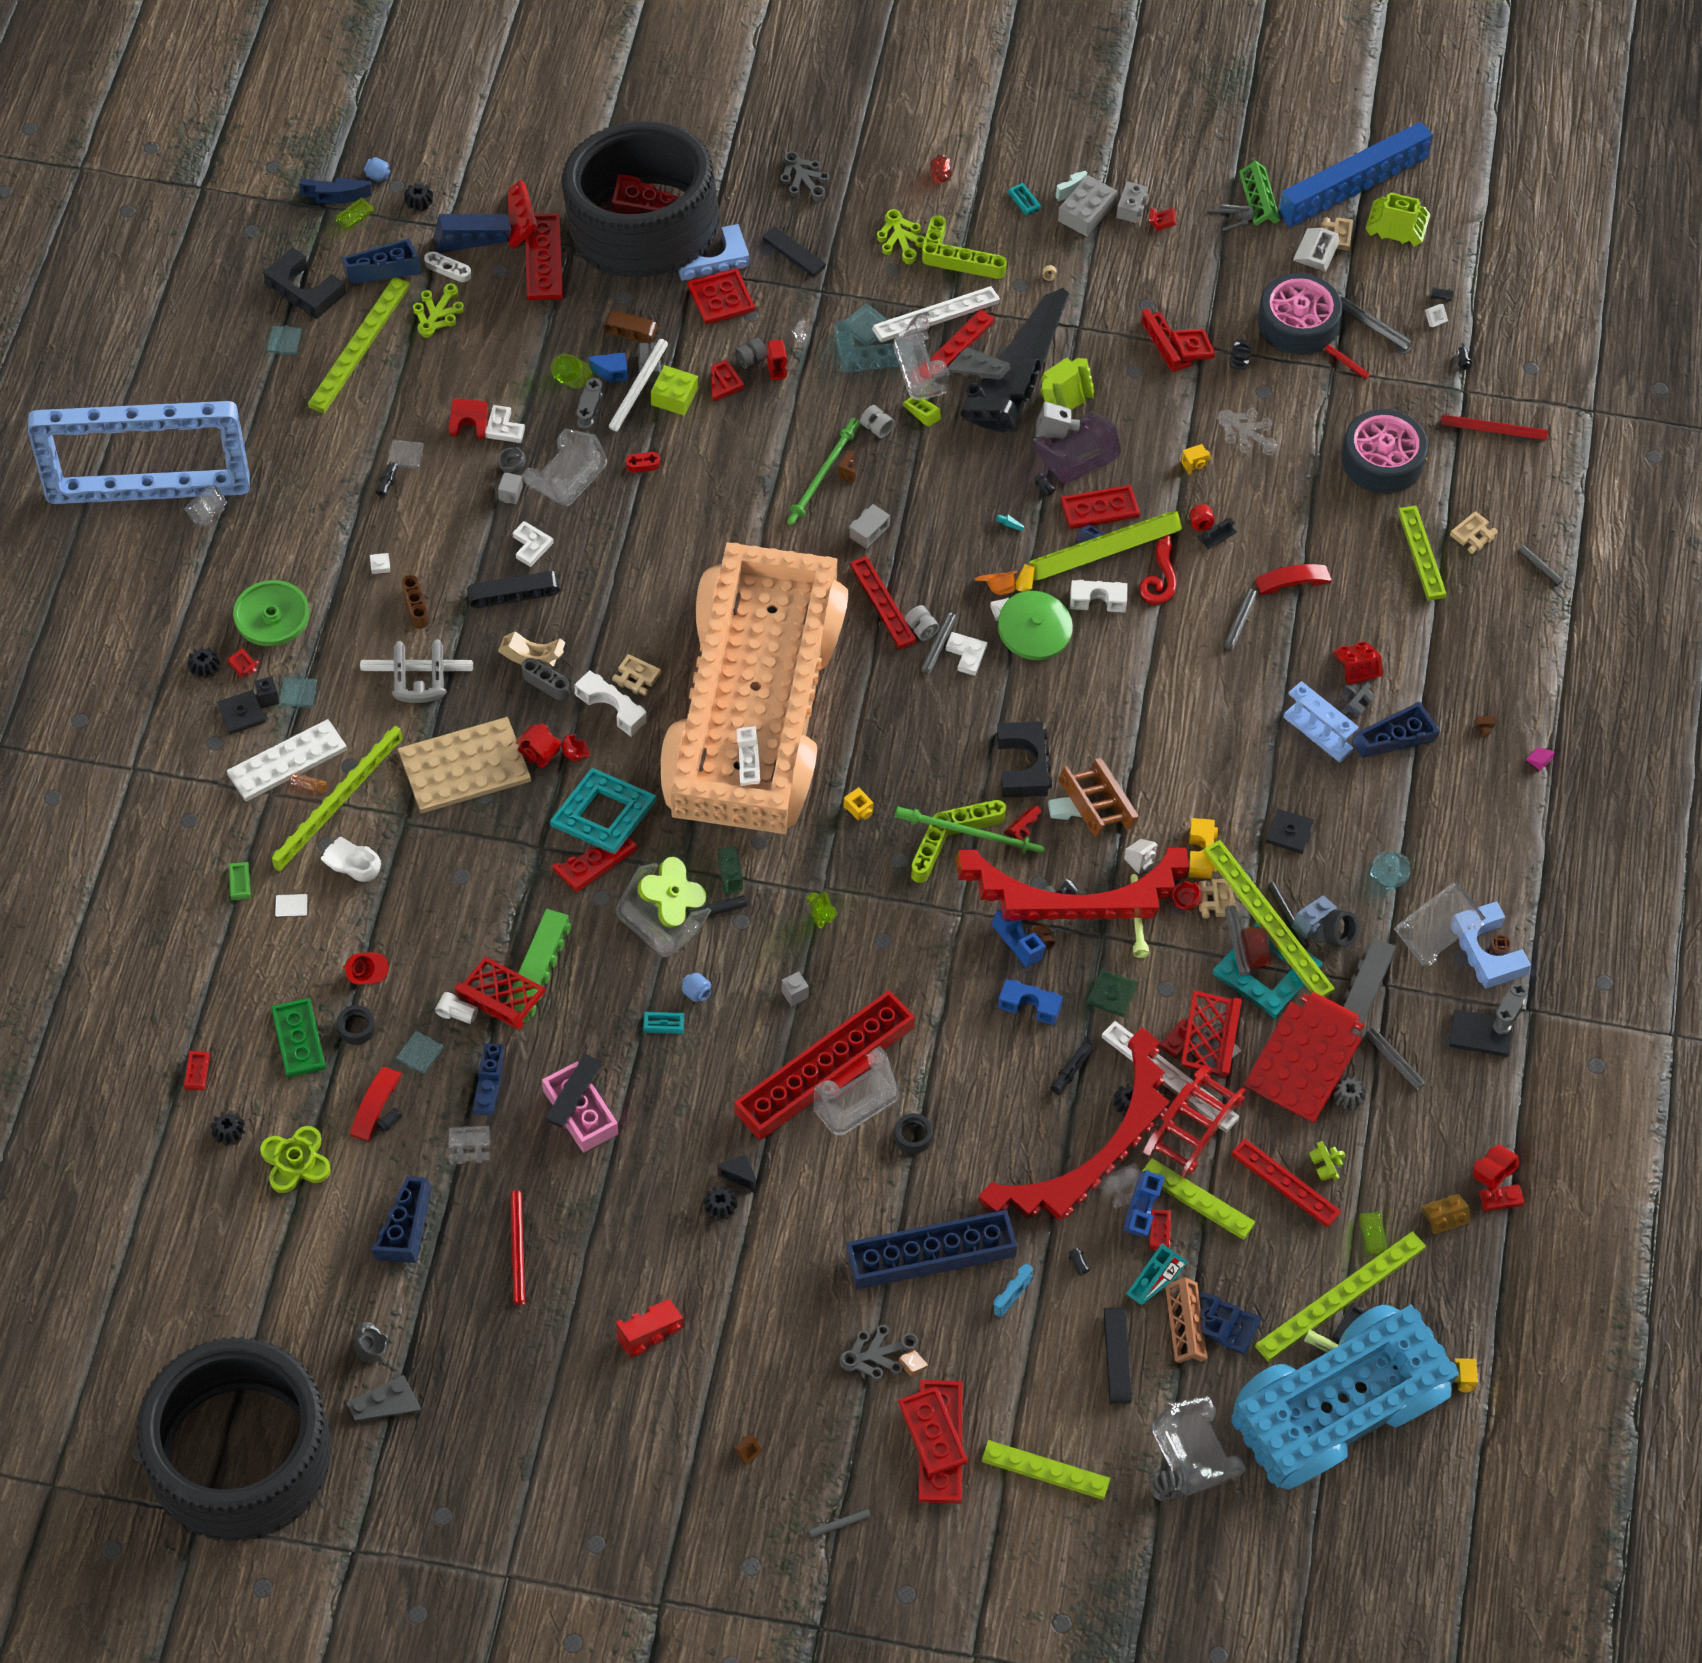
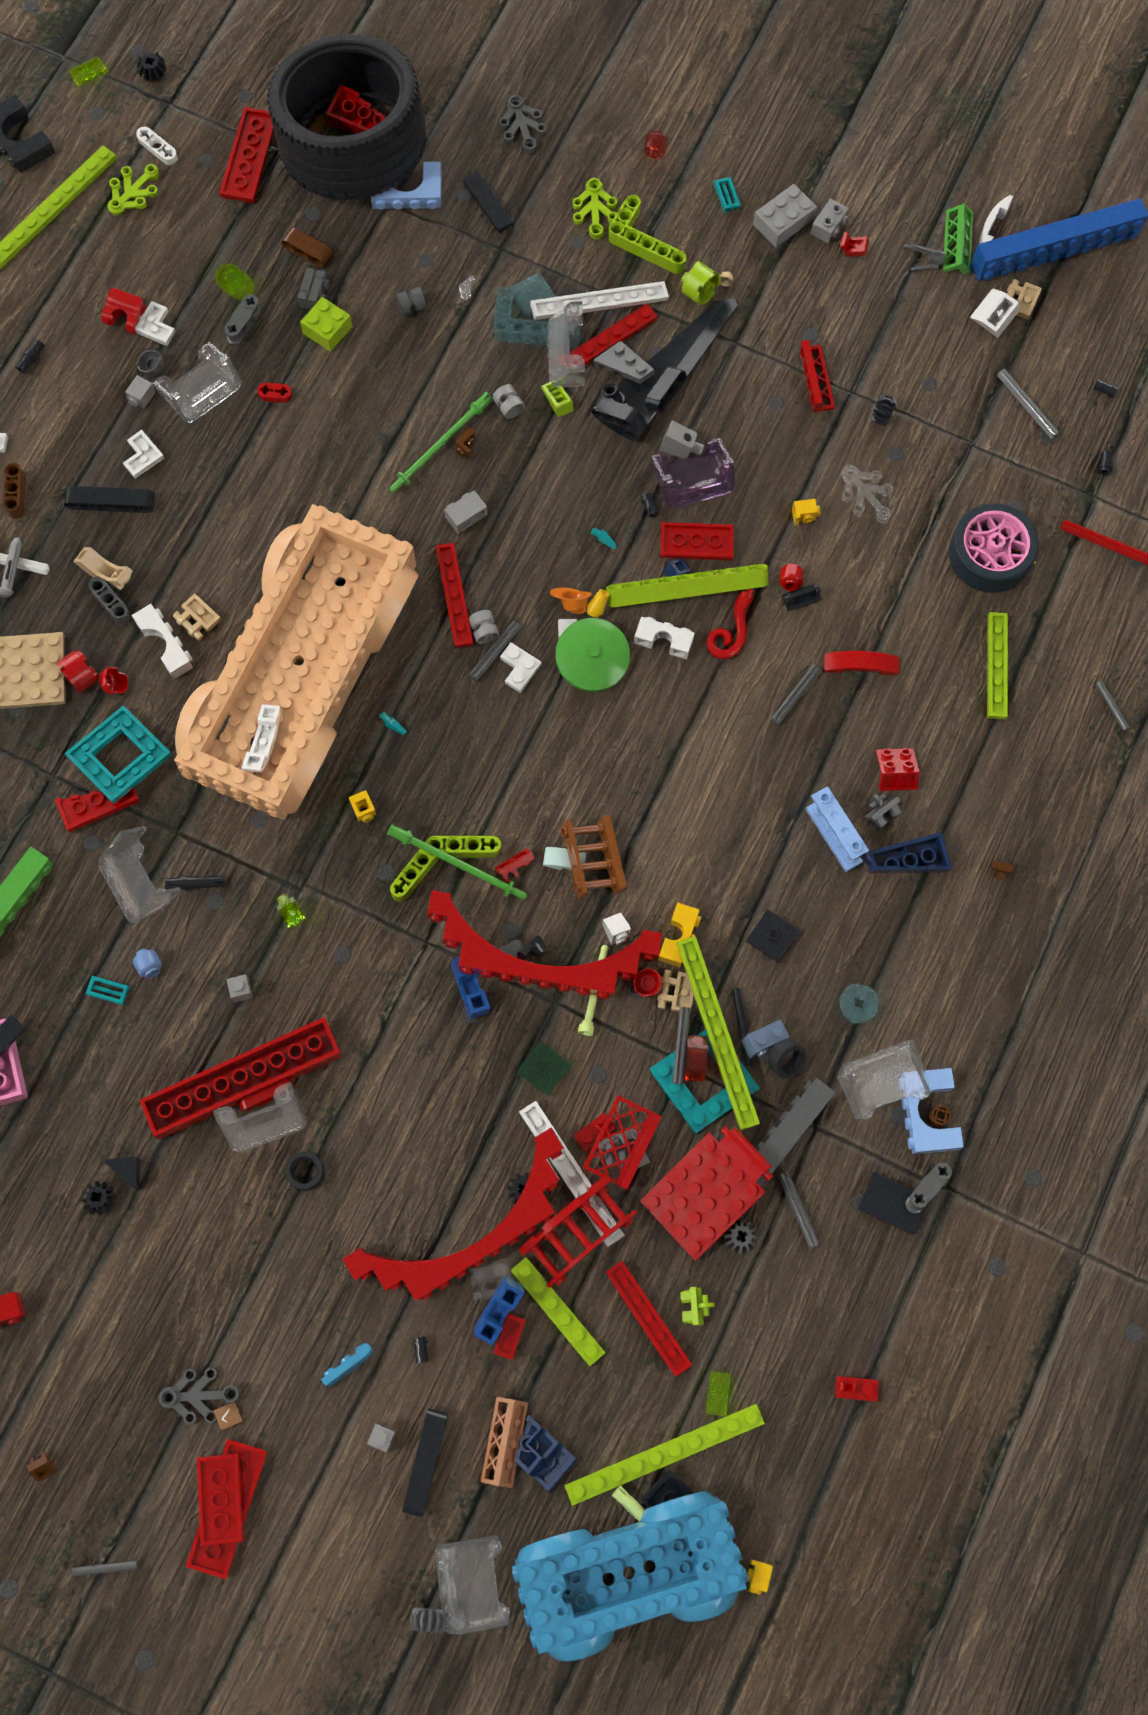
camera: 15 degrees right, 15 degrees up
(341, 191) = (77, 45): dark blue slope -> none
(377, 170) = (121, 30): medium blue head -> none
(382, 263) = (93, 129): dark blue wedge -> none
(406, 453) = (57, 332): clear piece -> none
(470, 231) = (187, 113): dark blue wedge -> none
(520, 214) = (240, 105): red wing -> none
(610, 367) = (274, 285): blue slope -> none
(638, 385) = (292, 311): white axle -> none
(671, 892) = (139, 855): plant -> none
(721, 296) = (402, 234): red plate -> none
(724, 380) = (378, 324): red wing -> none
(730, 869) = (218, 845): clear green brick -> none
(776, 359) = (431, 314): red brick -> none
(860, 727) = (392, 723): none -> teal bar
(931, 1249) = (279, 1303): dark blue brick -> none
(1016, 994) = (448, 1047): blue arch -> none
(1027, 280) = (700, 283): none -> lime brick
(1030, 737) = (539, 821): black arch -> none
(1043, 932) = (495, 992): reddish brown wheel -> none
(1046, 1470) = (319, 1565): lime plate -> none
(1066, 188) = (769, 192): light aqua slope -> none
(1067, 383) = (702, 405): lime slope -> none
(1067, 1074) = (478, 1140): black pin -> none
(1068, 1343) = (381, 1438): none -> light grey brick
(1157, 1274) = (490, 1386): teal slope -> none
(1192, 344) = (841, 387): red plate -> none
(1289, 163) = (998, 211): none -> white slope
(1290, 313) = (955, 379): wheel -> none
(1347, 361) = (987, 438): red bar -> none
(1398, 219) = (1087, 297): lime slope -> none
(1436, 315) = (1092, 410): white plate -> none
(1446, 1213) = (796, 1392): pearl gold bracket -> none
(1470, 528) = (1054, 650): tan plate -> none
(1495, 1166) = (860, 1356): red brick -> none
(1540, 757) = (1045, 916): dark pink slope -> none

